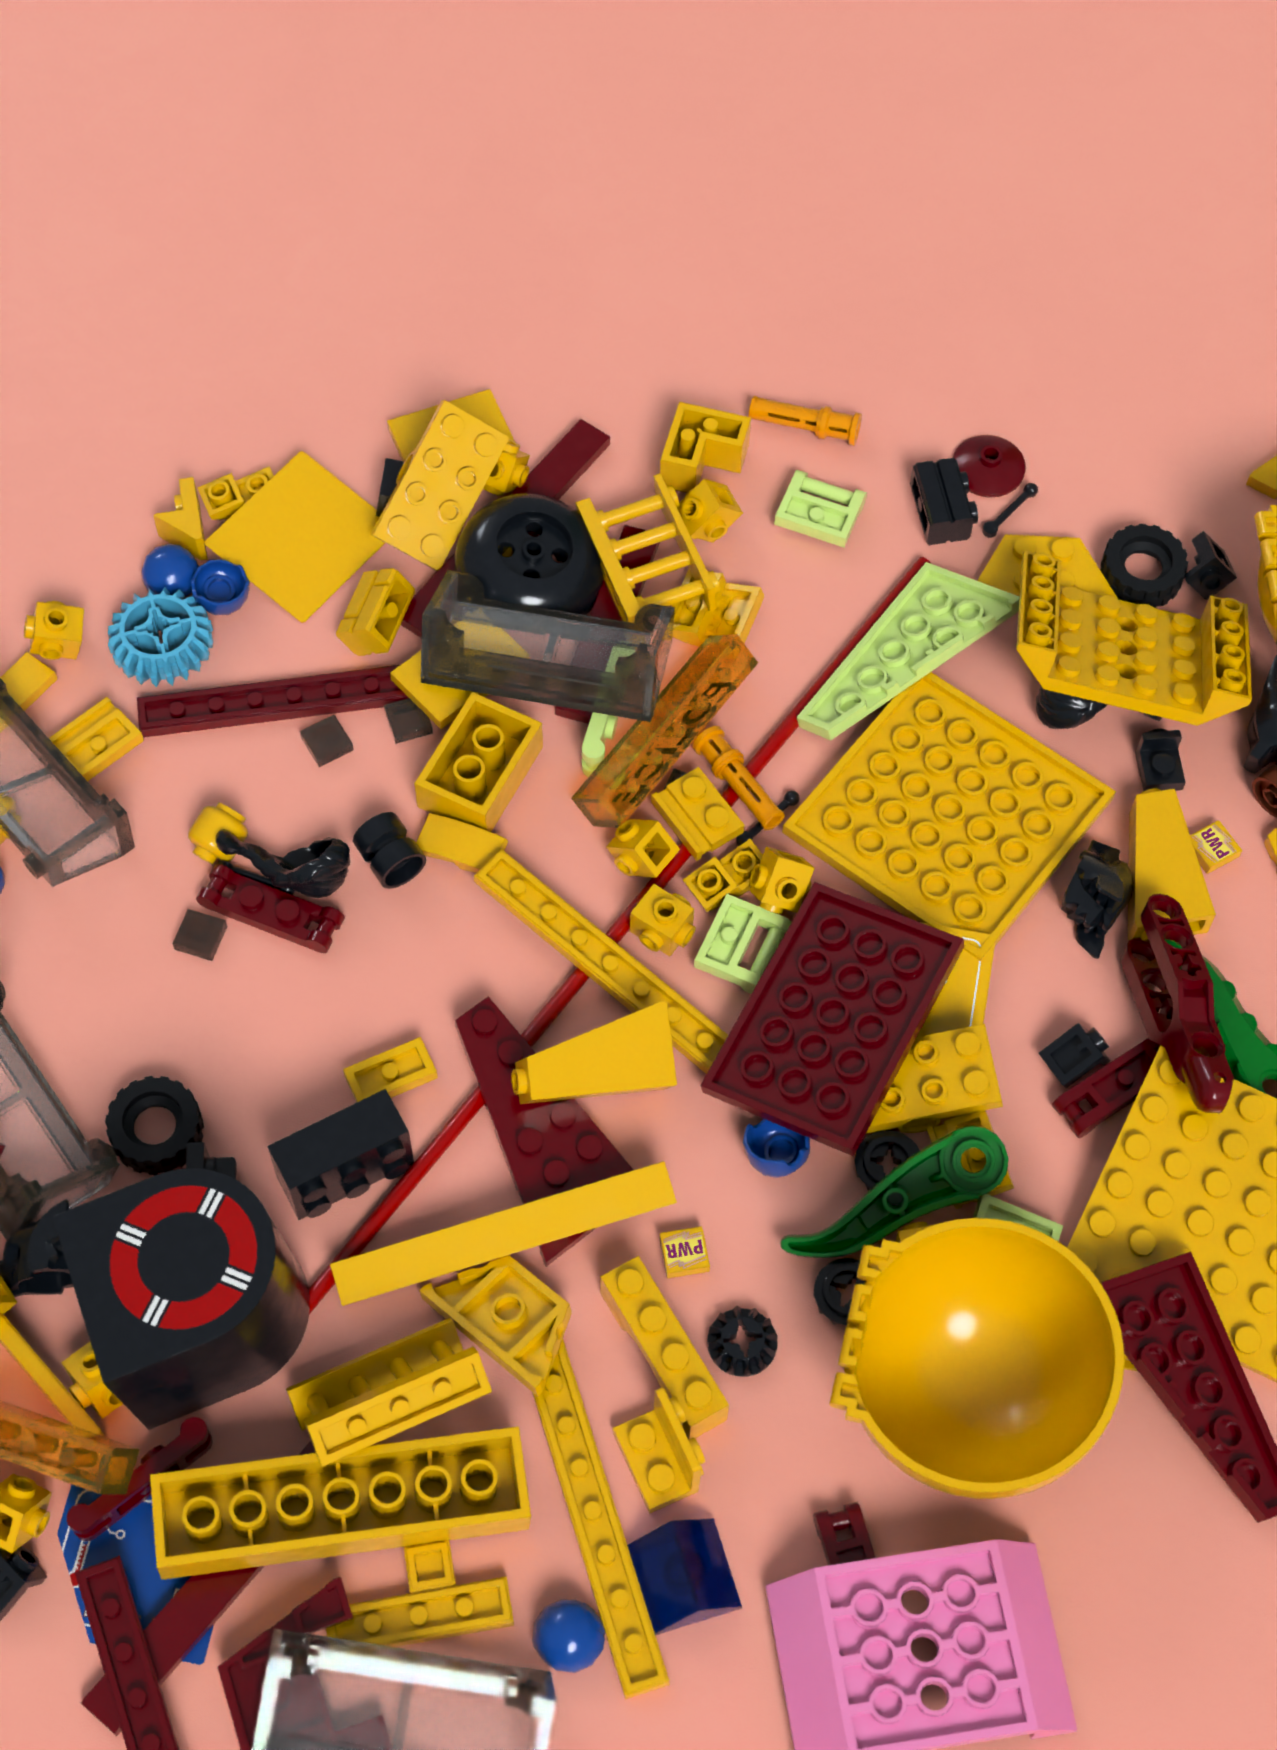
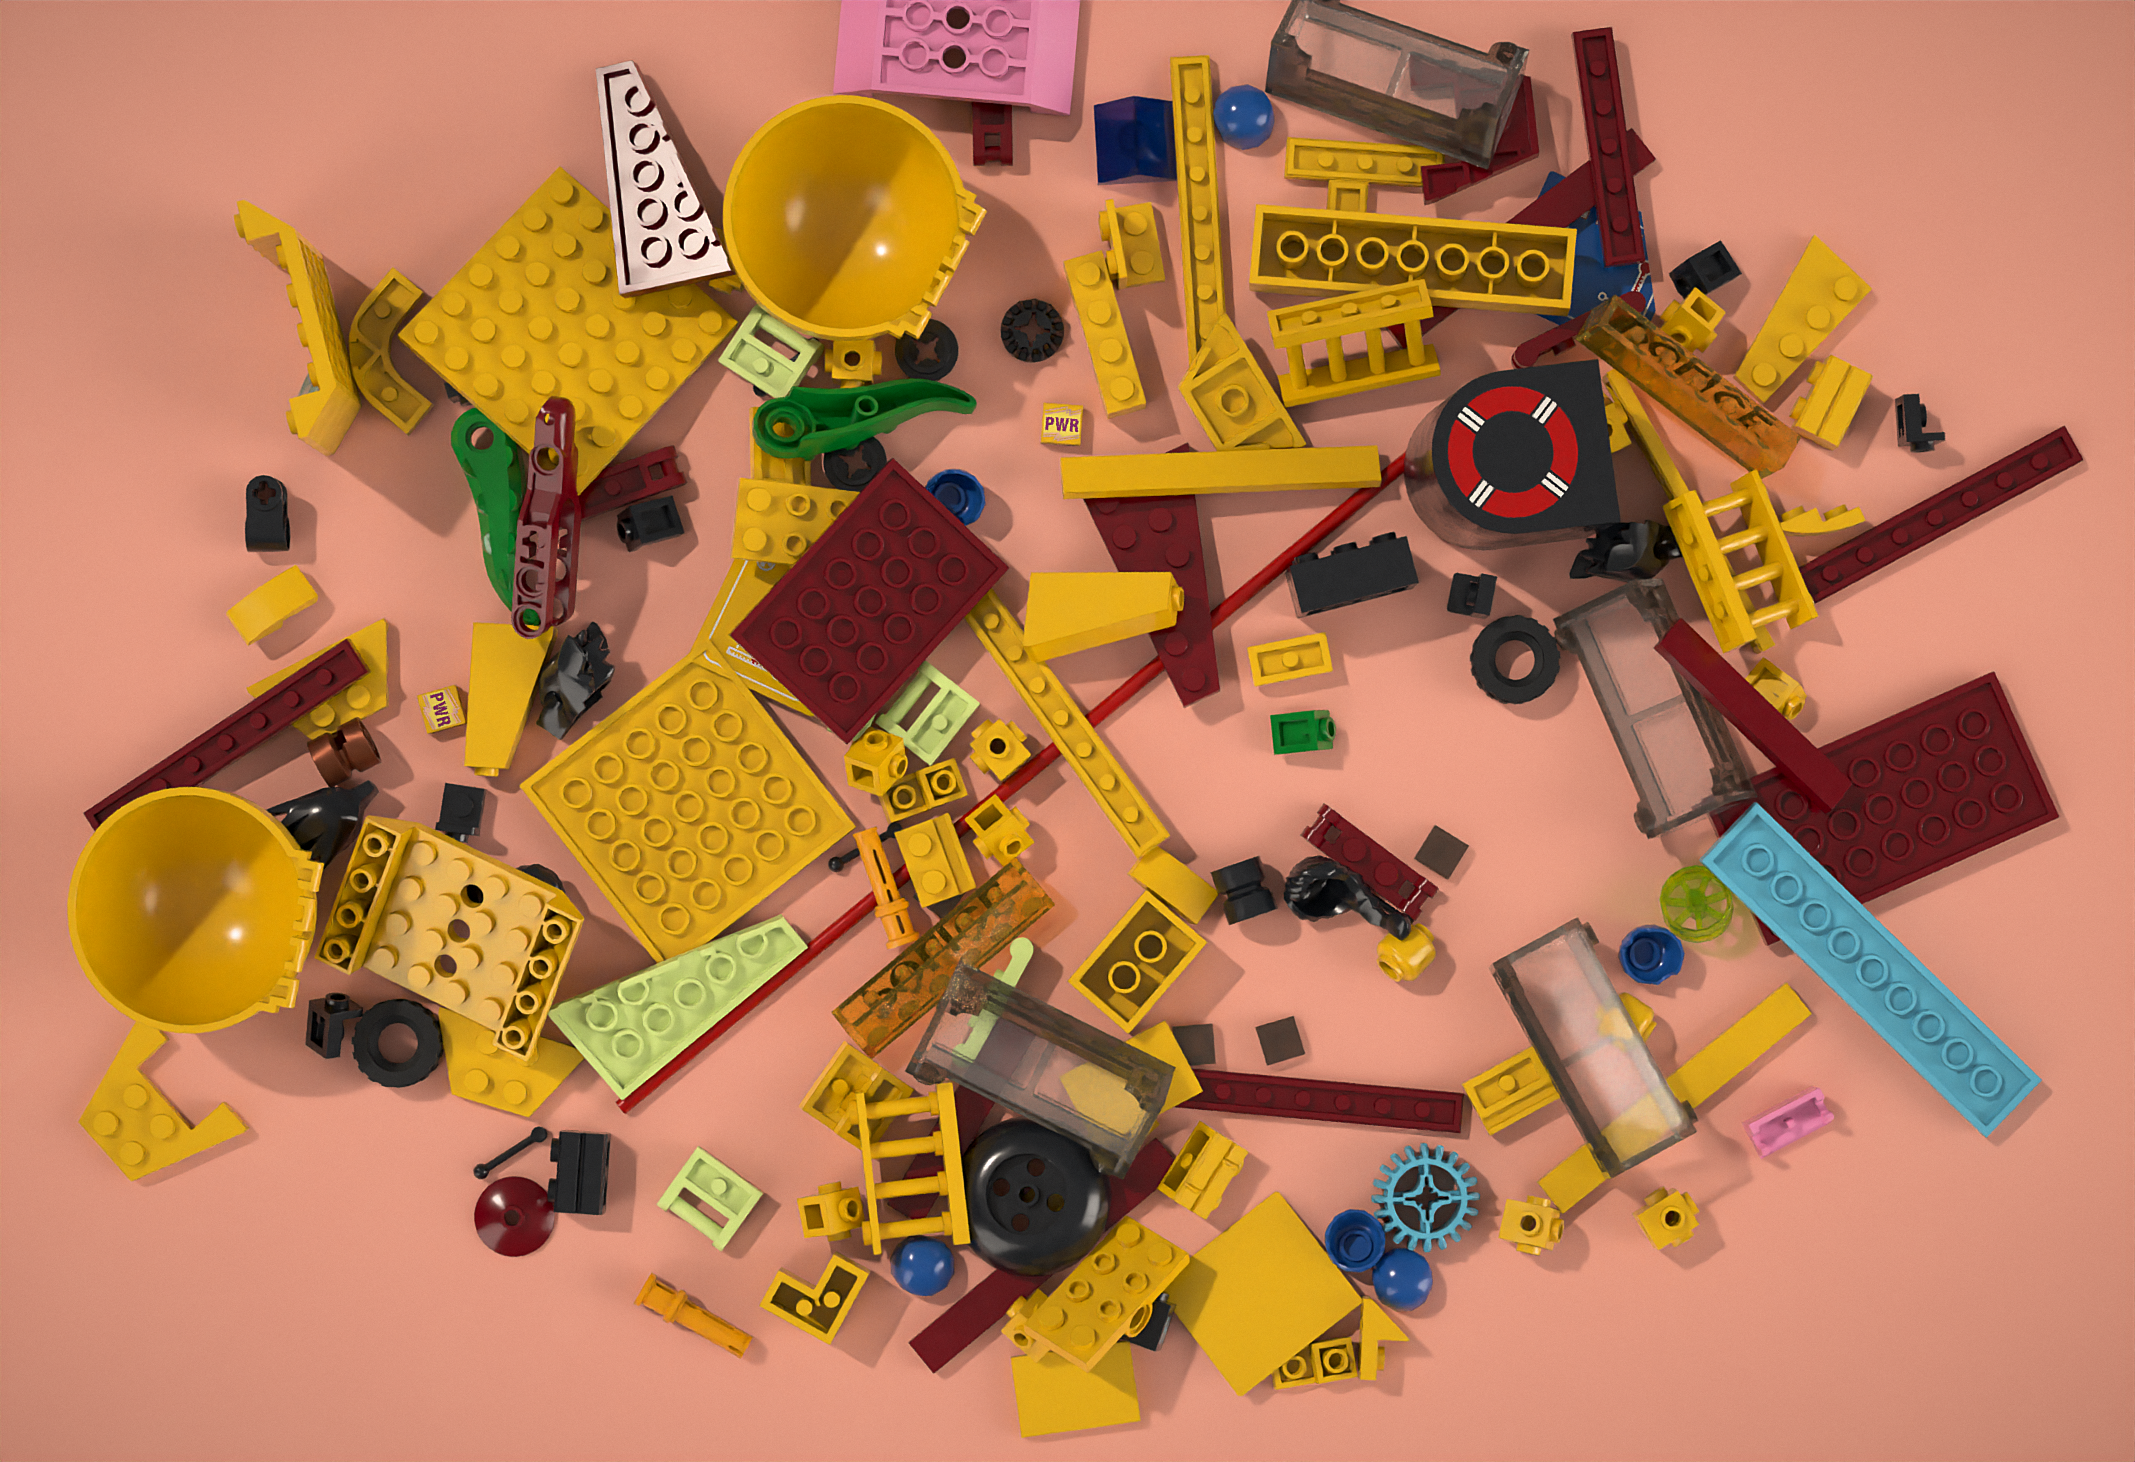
camera: 170 degrees left, 25 degrees up
(362, 1006) = (1302, 731): none -> green bracket
(612, 490) = (922, 1265): none -> blue hair

